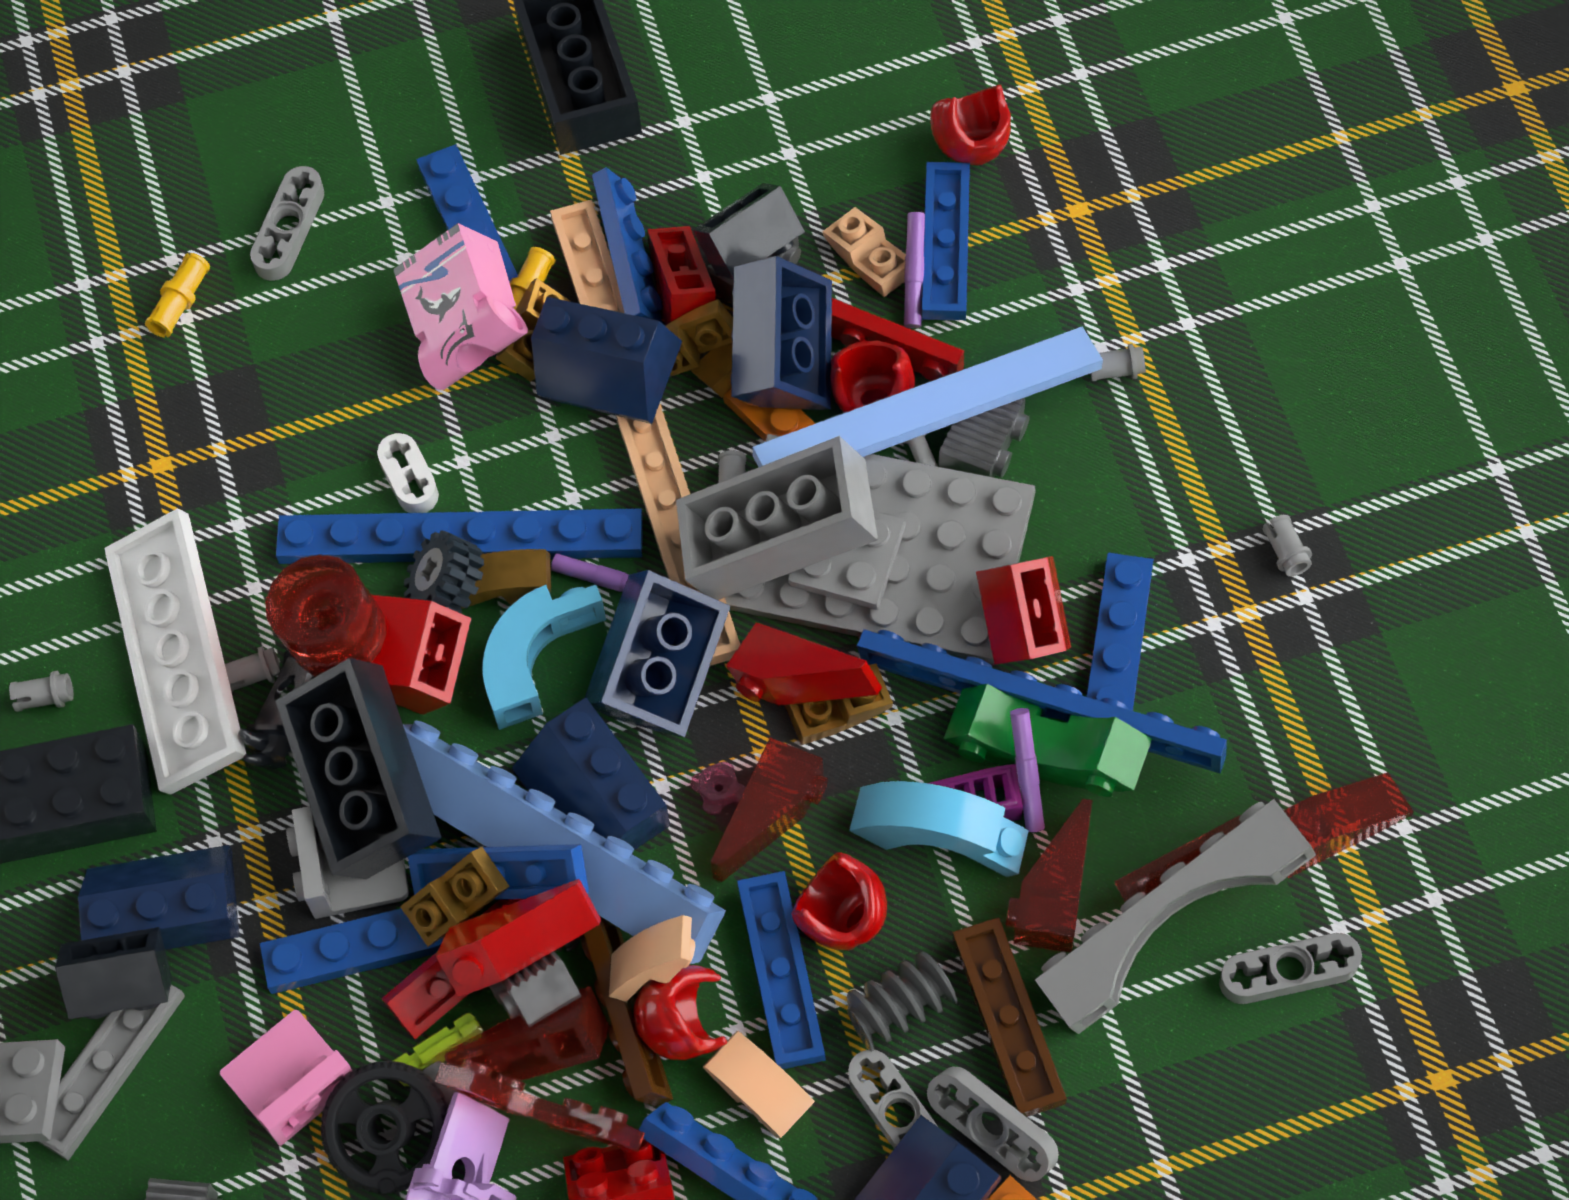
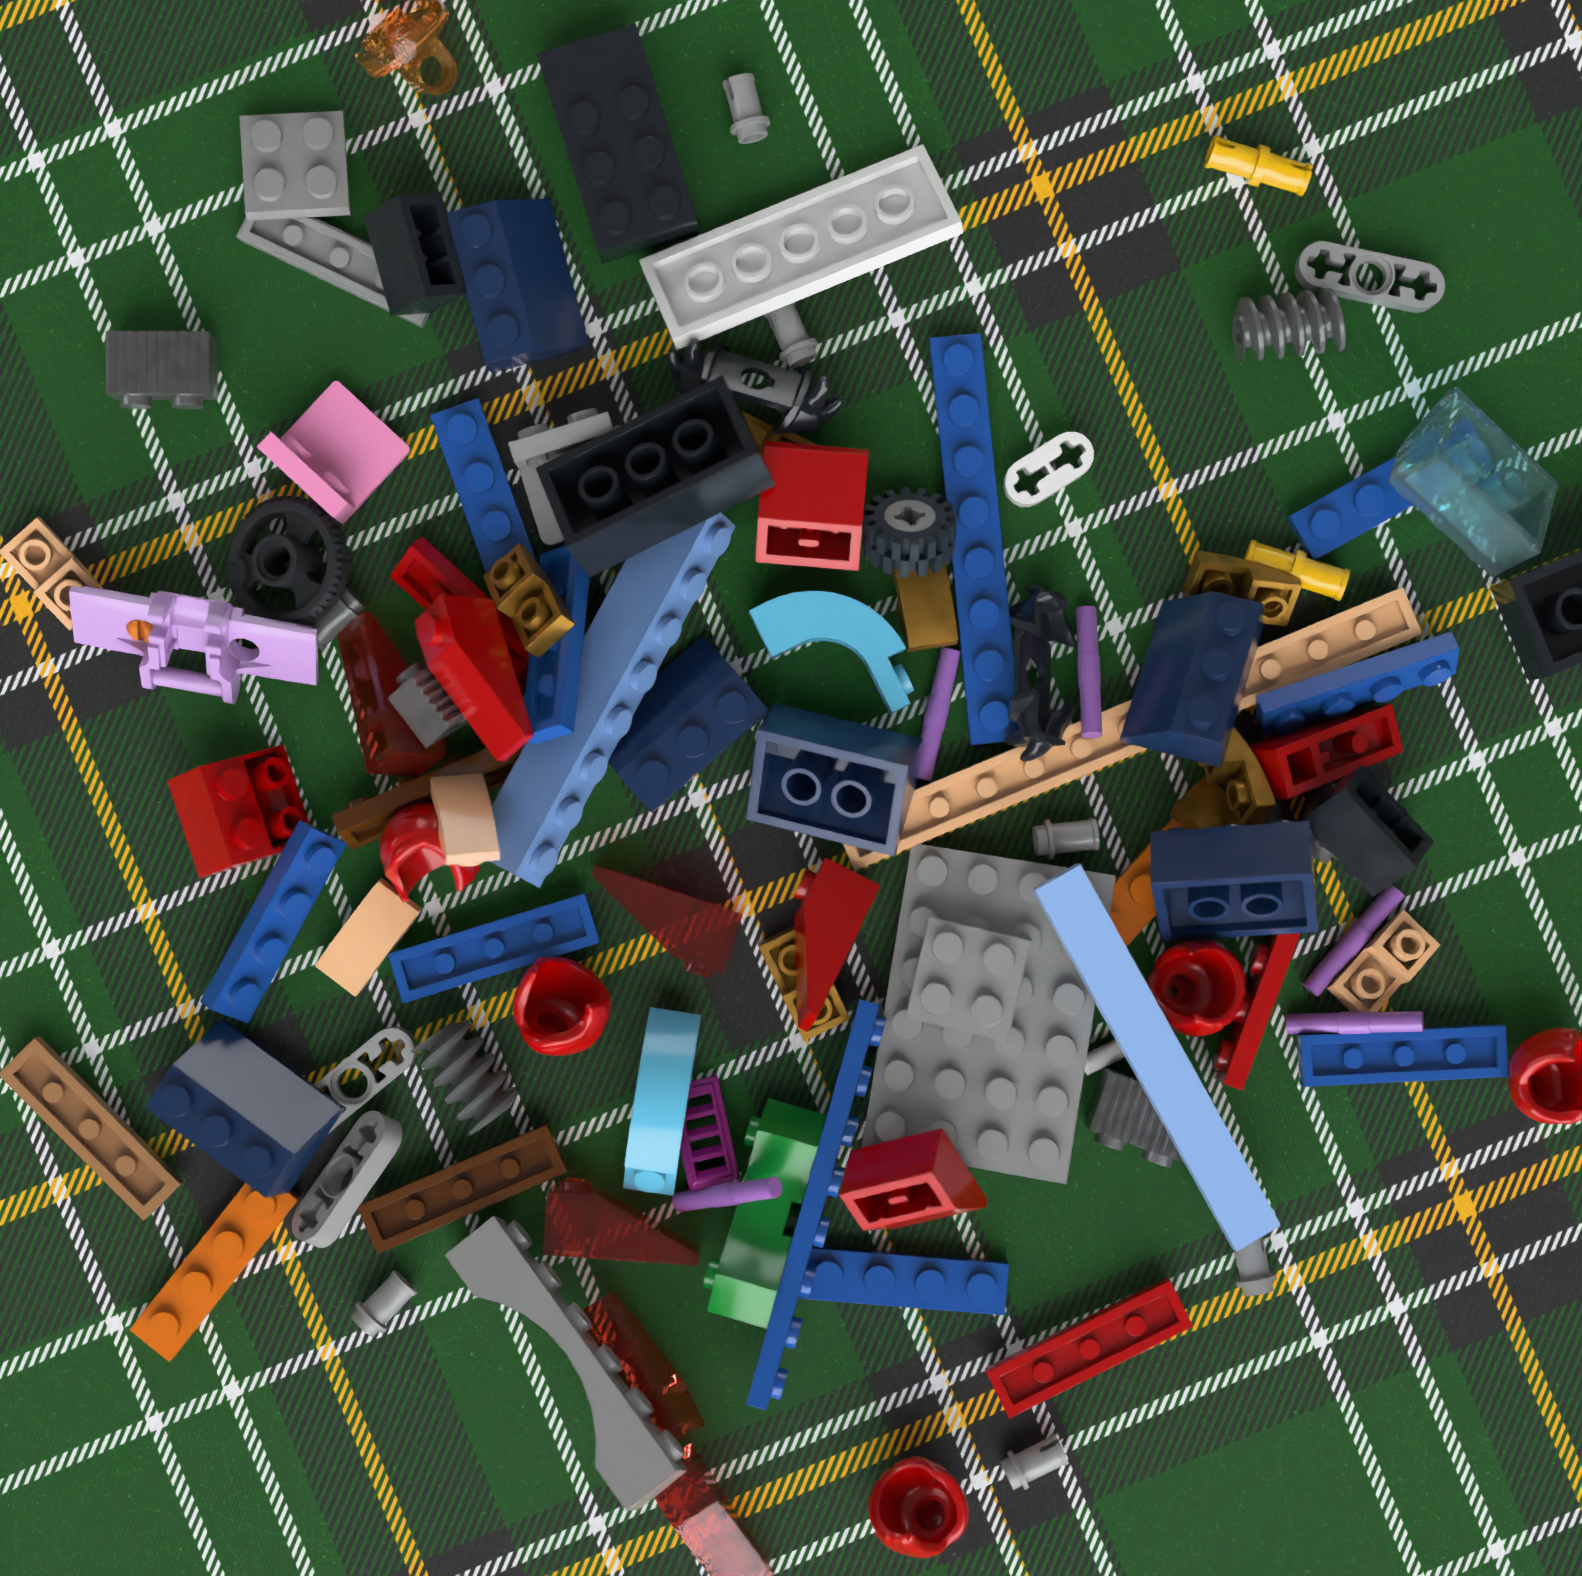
camera: 85 degrees right, 25 degrees up
(316, 279) = (1288, 322): none -> dark grey piece
(324, 614) = (807, 388): clear red wheel -> none
(436, 1045) = (381, 601): lime axle -> none
(458, 304) = (1254, 501): bright pink piece -> none
(474, 149) = (1475, 484): none -> clear light blue slope
(543, 484) = (1037, 627): none -> black piece
(570, 1117) = (314, 749): clear red plate -> none
(588, 449) = (1089, 672): none -> medium lavender piece
(714, 775) = (698, 846): clear pink plate -> none
(776, 519) = (983, 902): light grey brick -> none
(845, 272) = (1353, 940): none -> medium lavender piece
(1117, 1101) = (383, 1304): none -> light grey pin
(1186, 495) = (1088, 1347): none -> red plate
(1312, 636) = (911, 1502): none -> red piece
(1328, 971) = (568, 1507): light grey beam -> none

